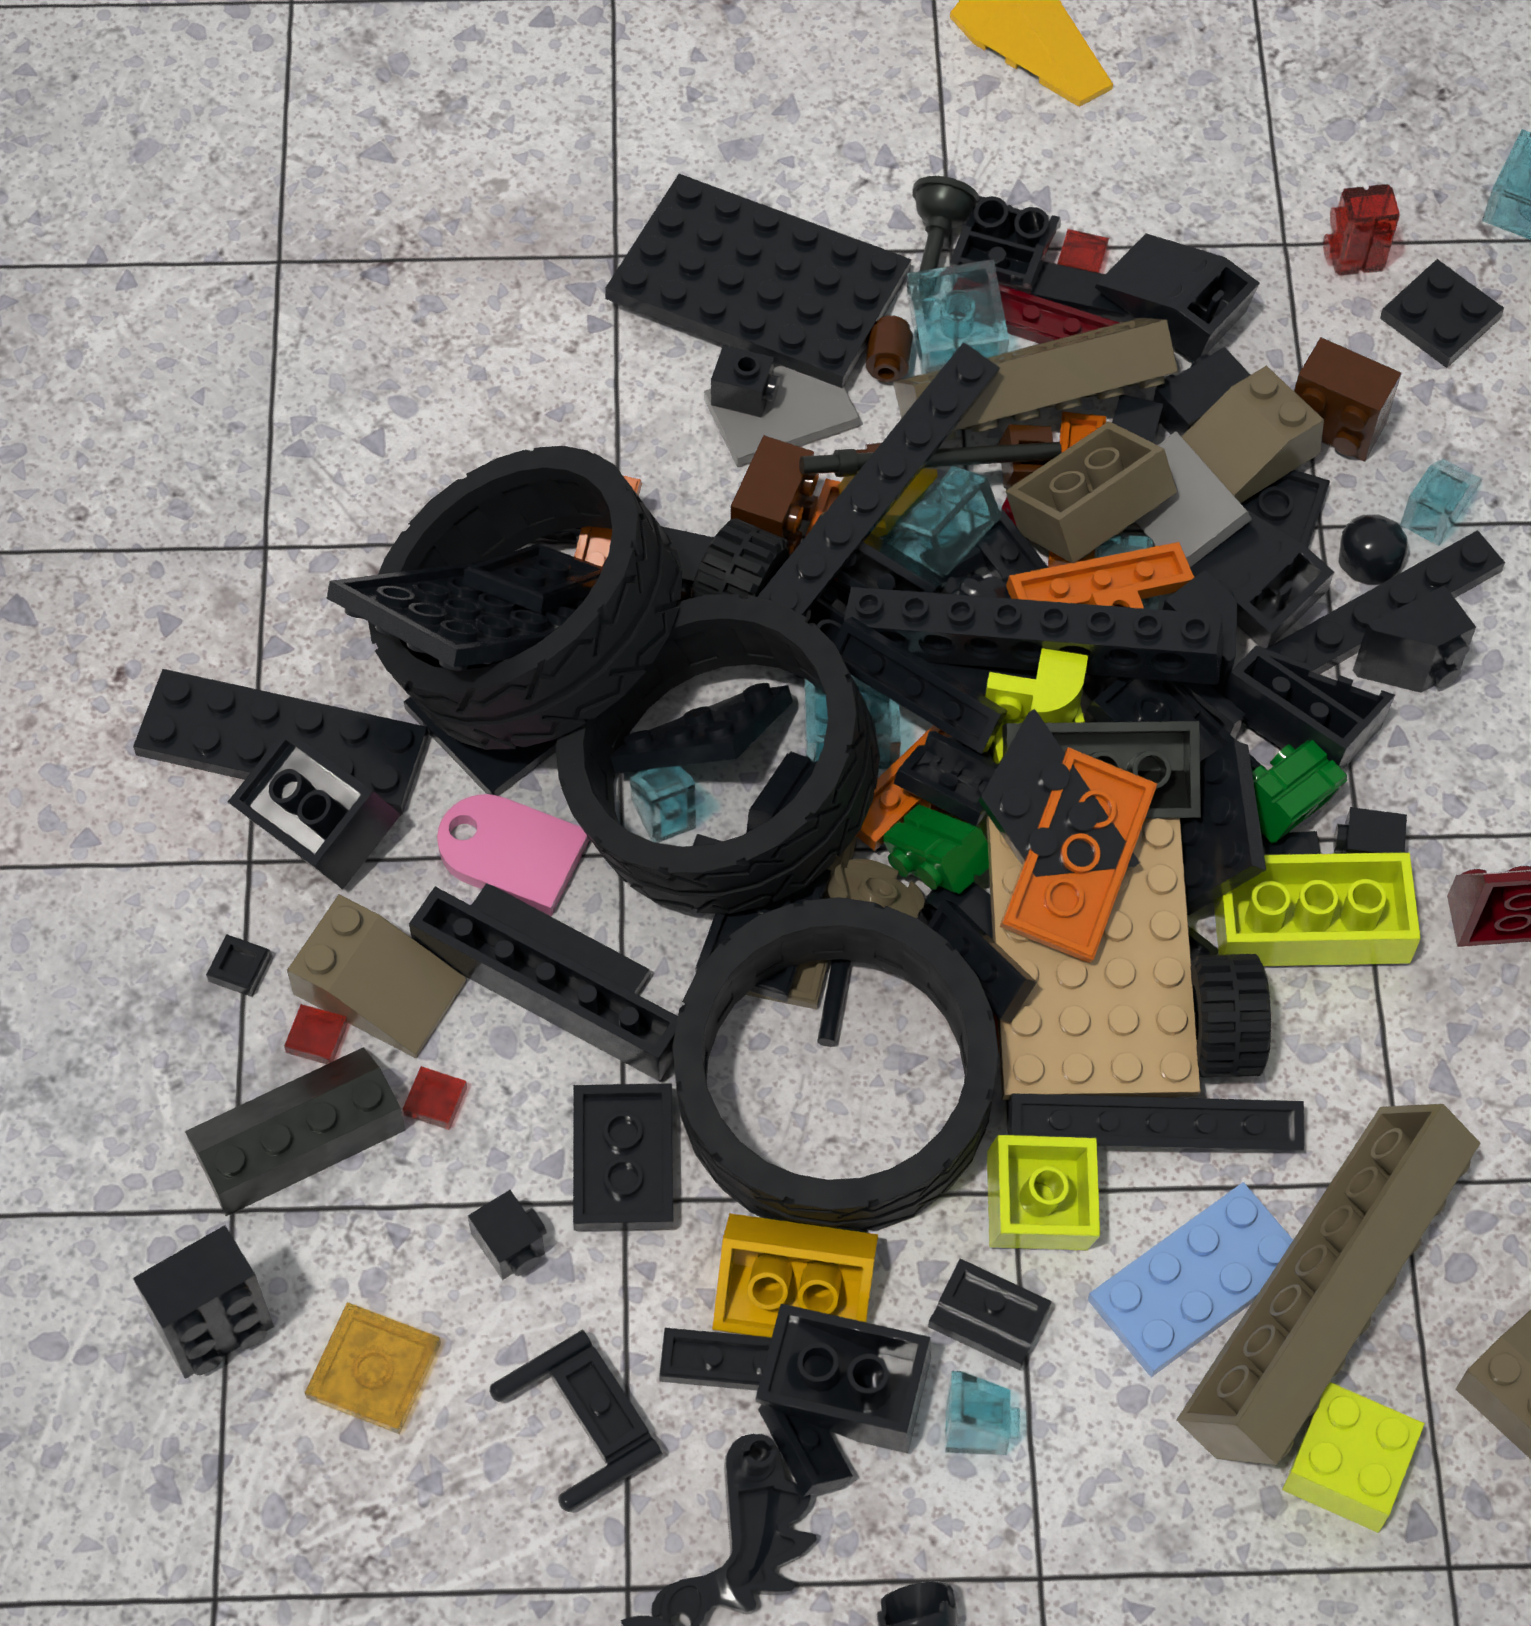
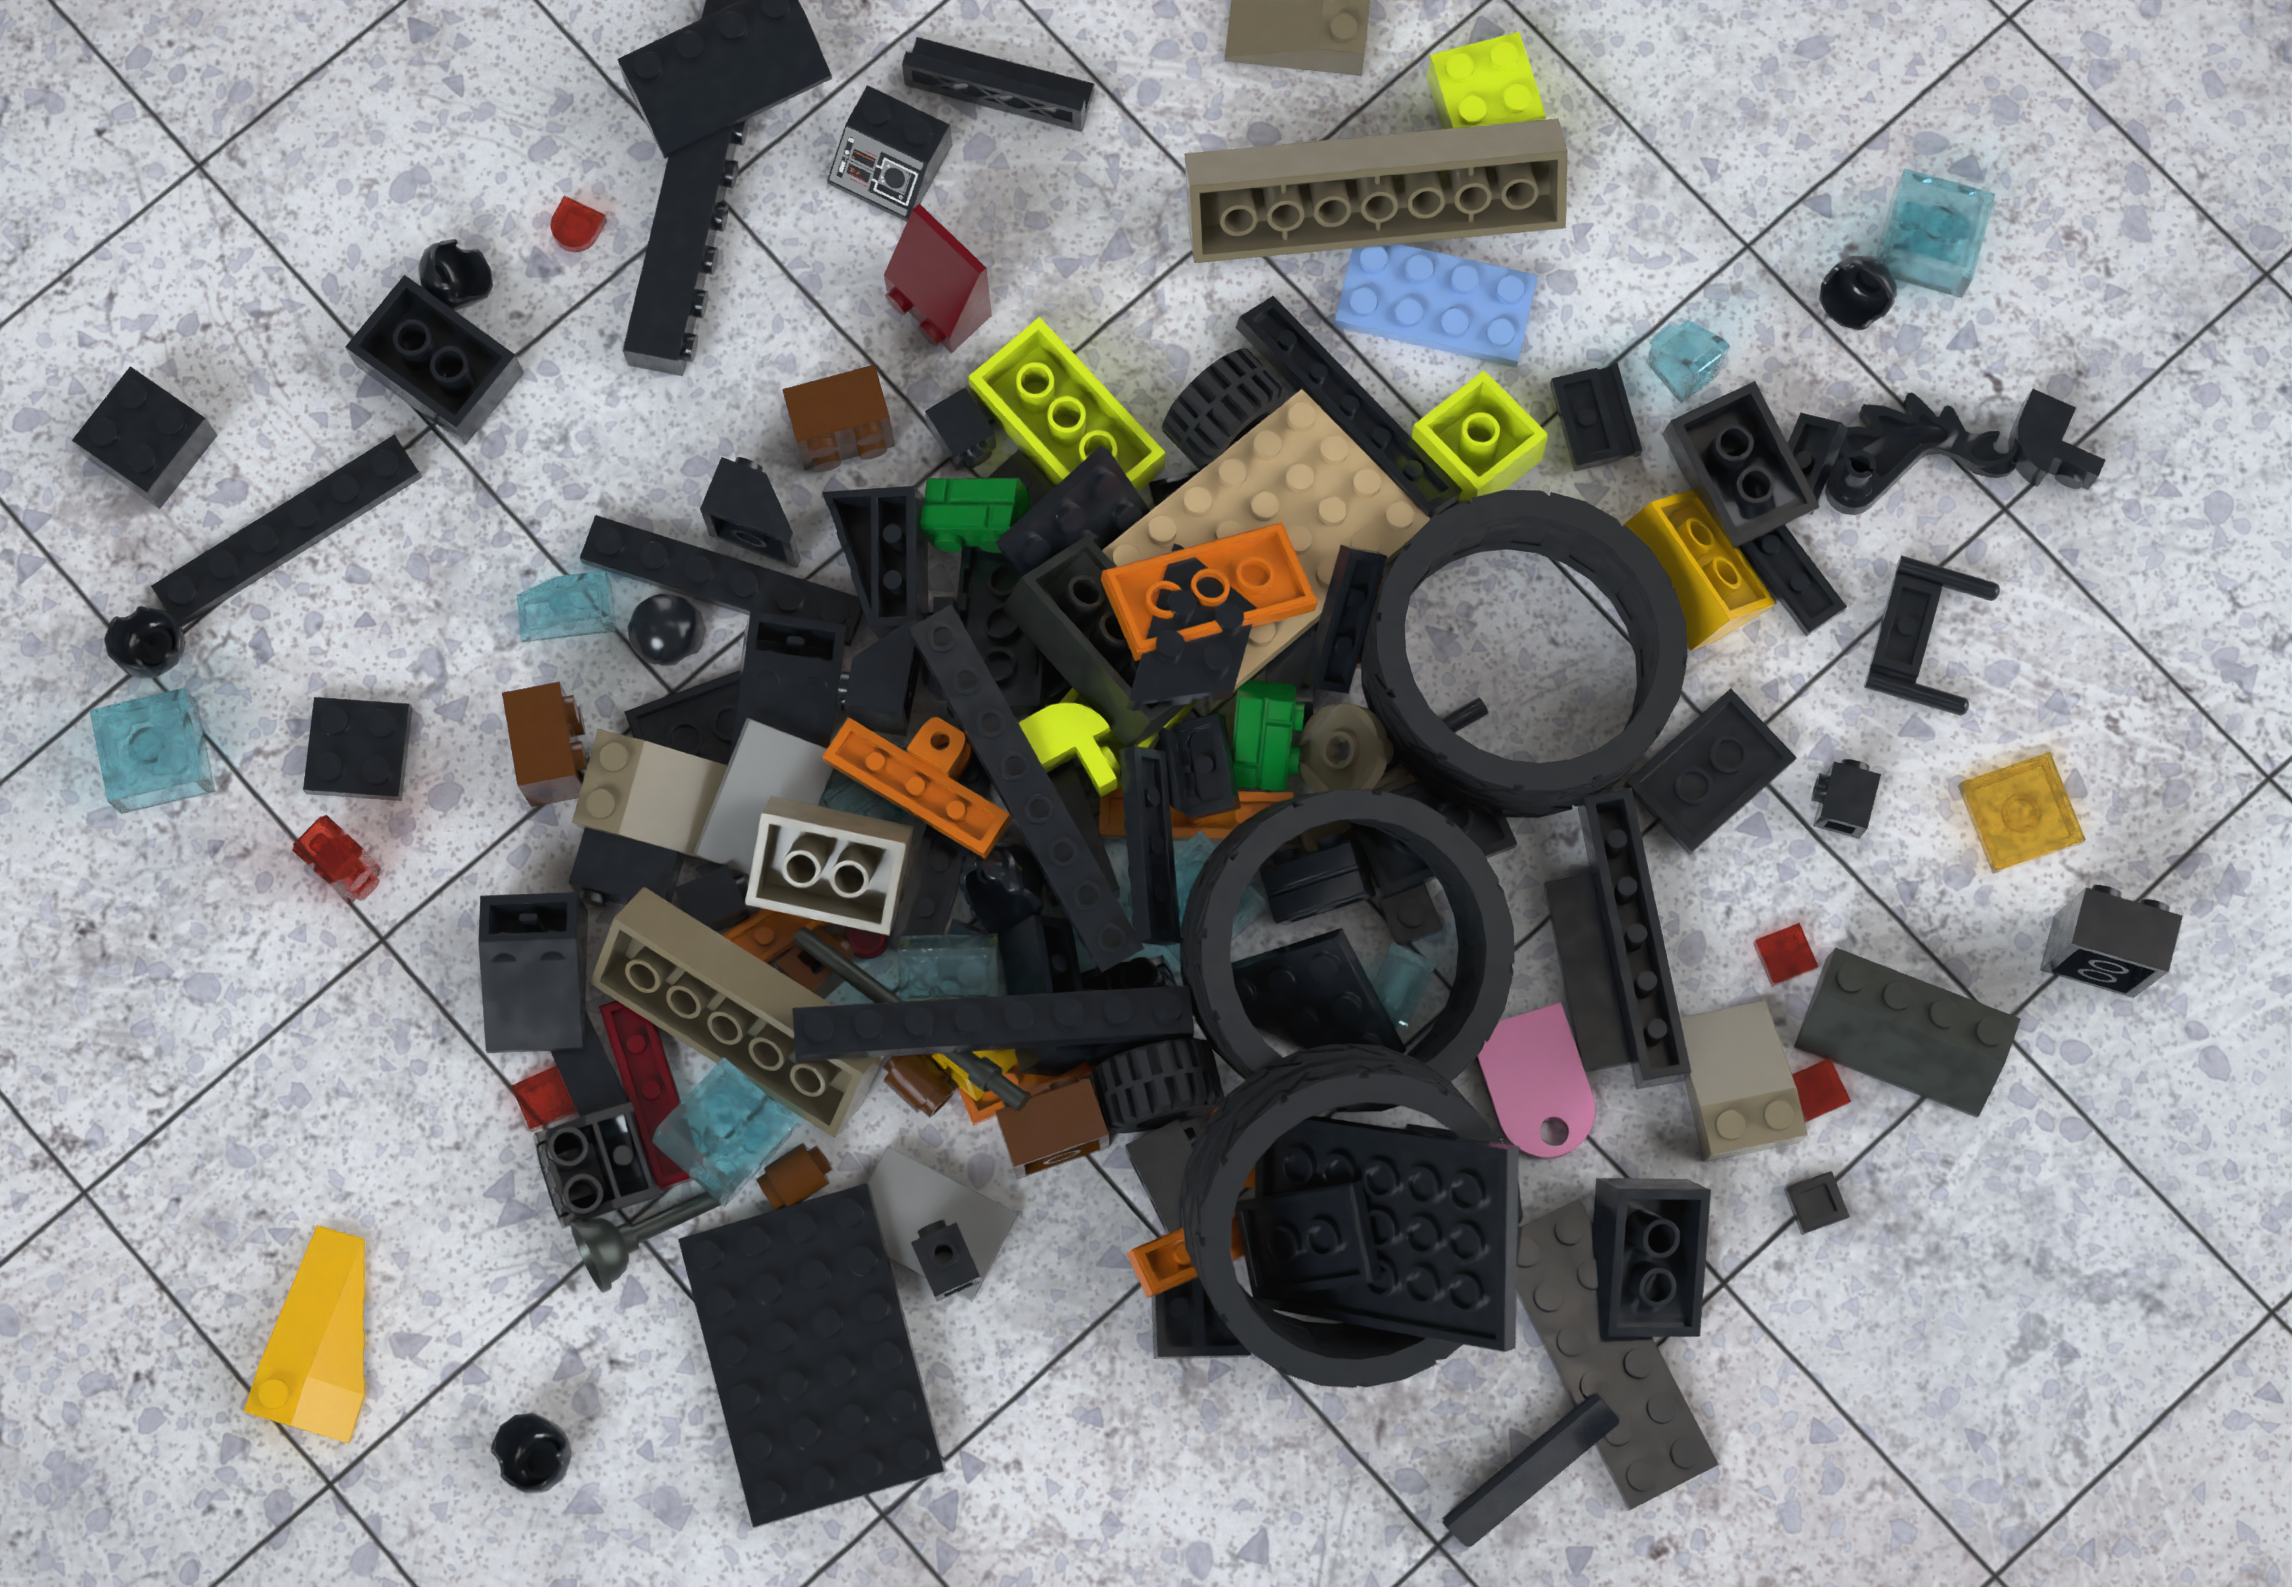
camera: 130 degrees left, 15 degrees up
(252, 623) = (1531, 1470): none -> black slope
(845, 90) = (531, 1453): none -> black hair
(1446, 751) = (839, 418): none -> reddish brown brick

